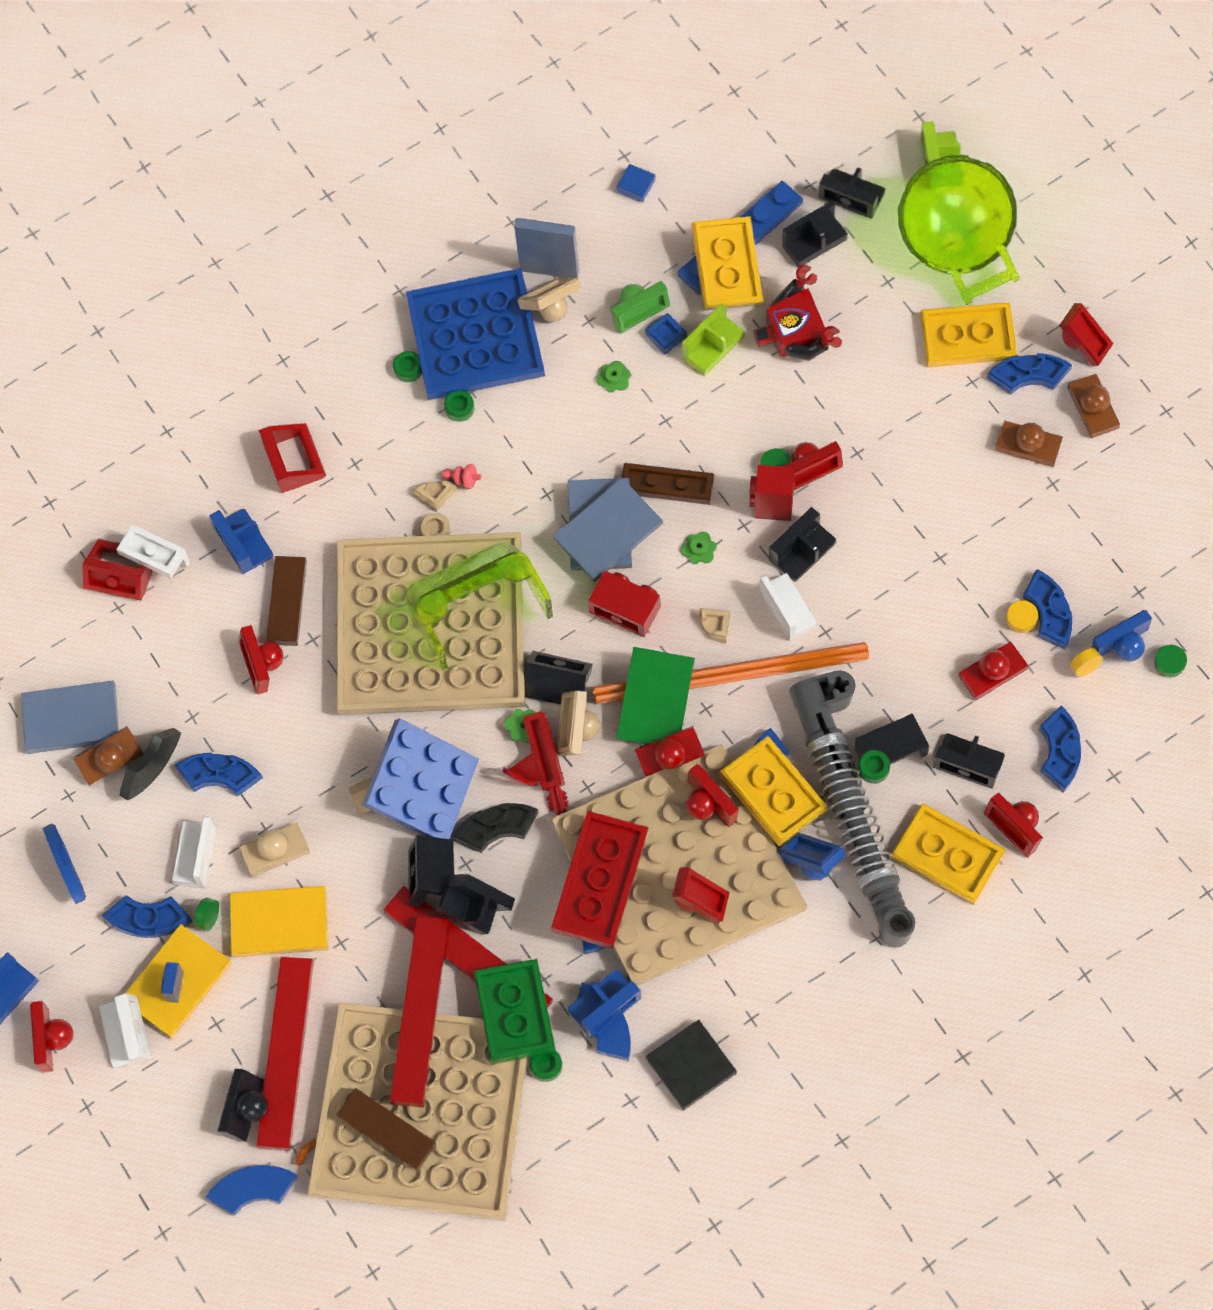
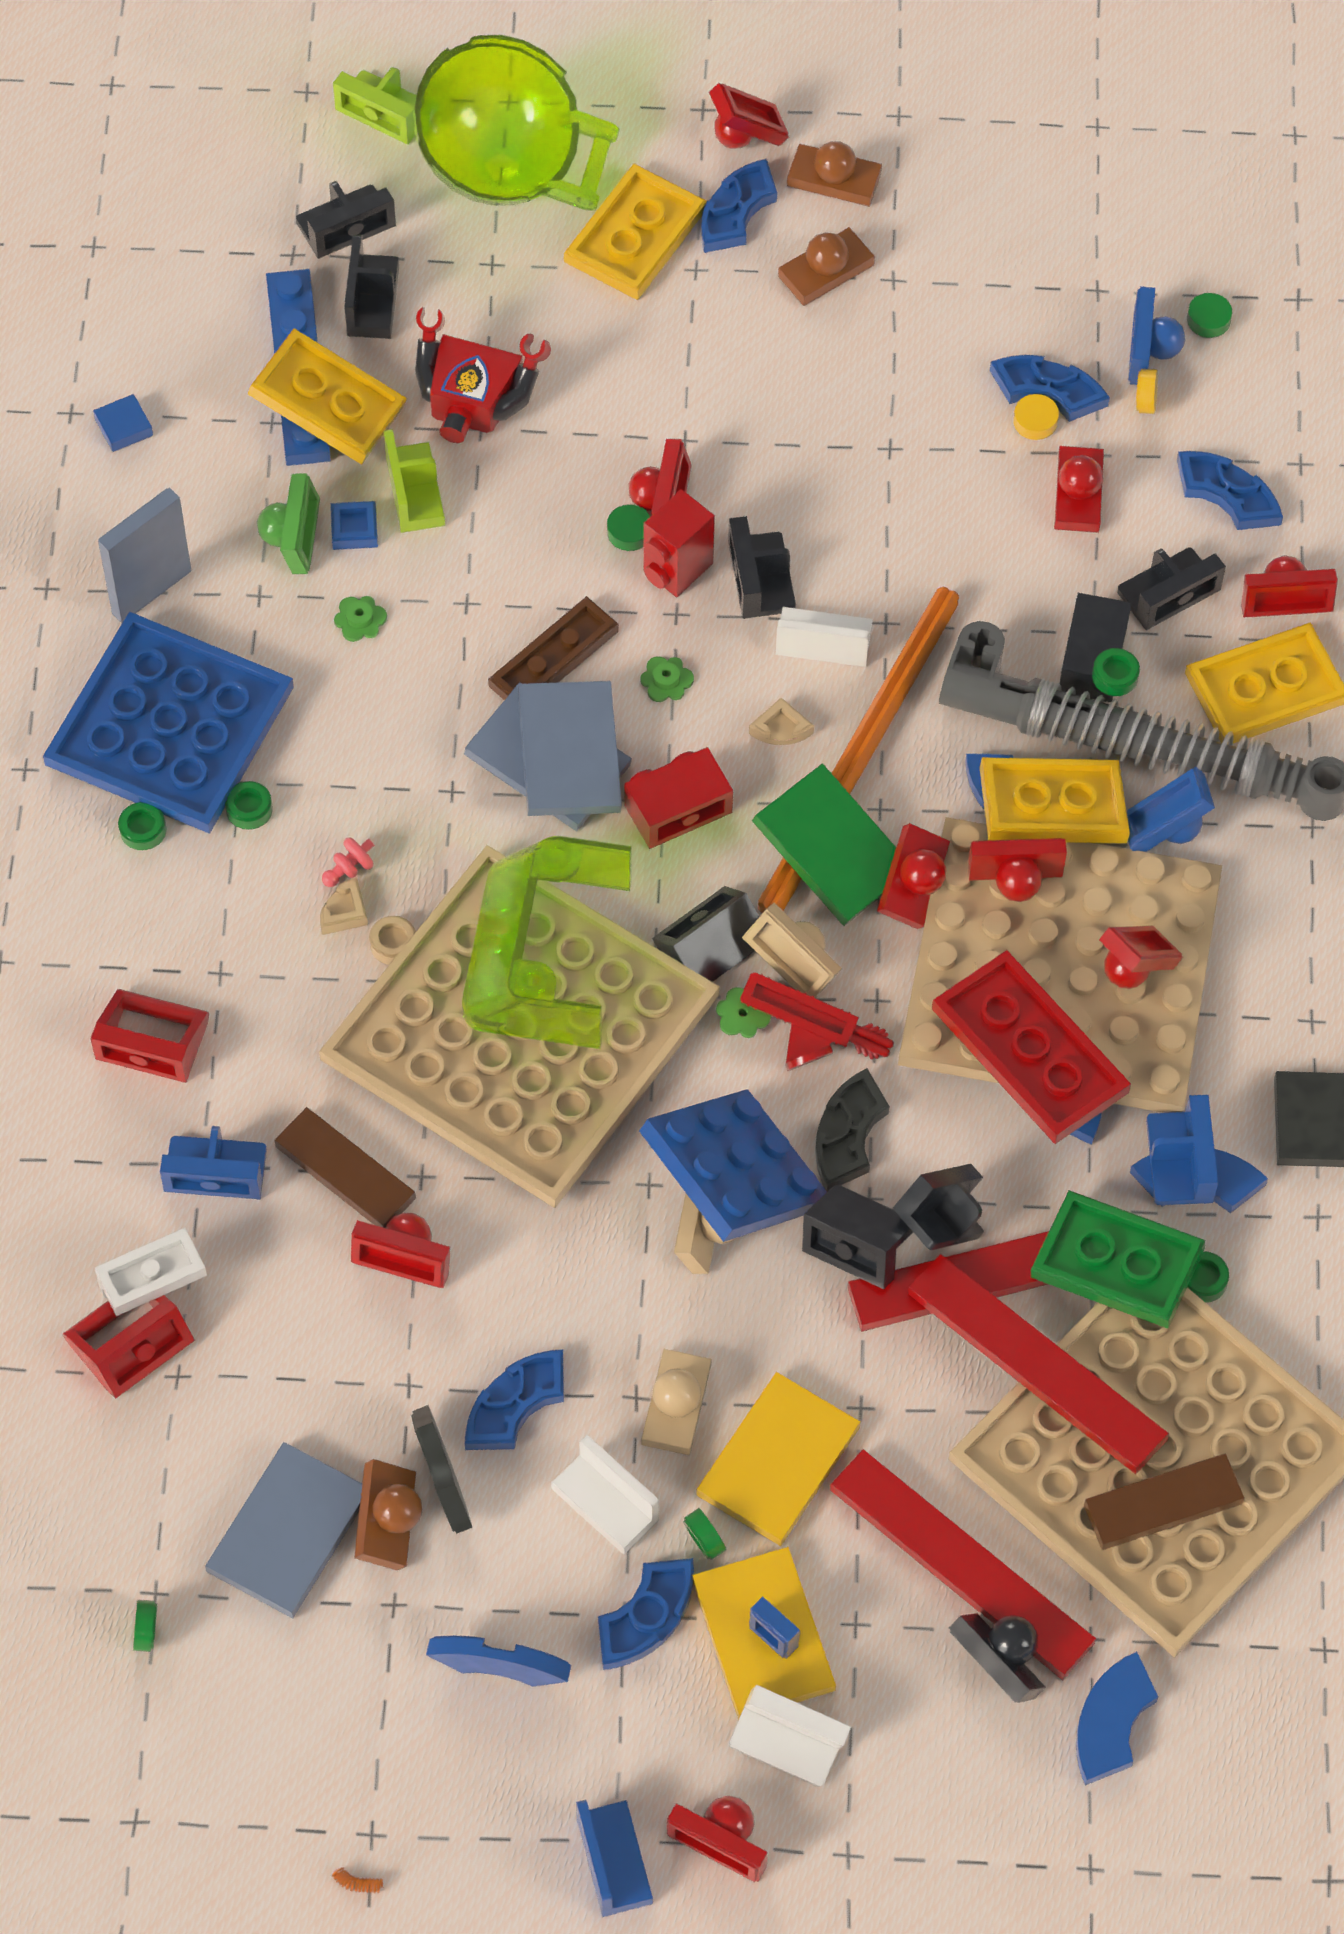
camera: 60 degrees left, 5 degrees down
(307, 1148) = (1109, 1627): orange leg -> none
(550, 298) = (200, 605): tan tile -> none

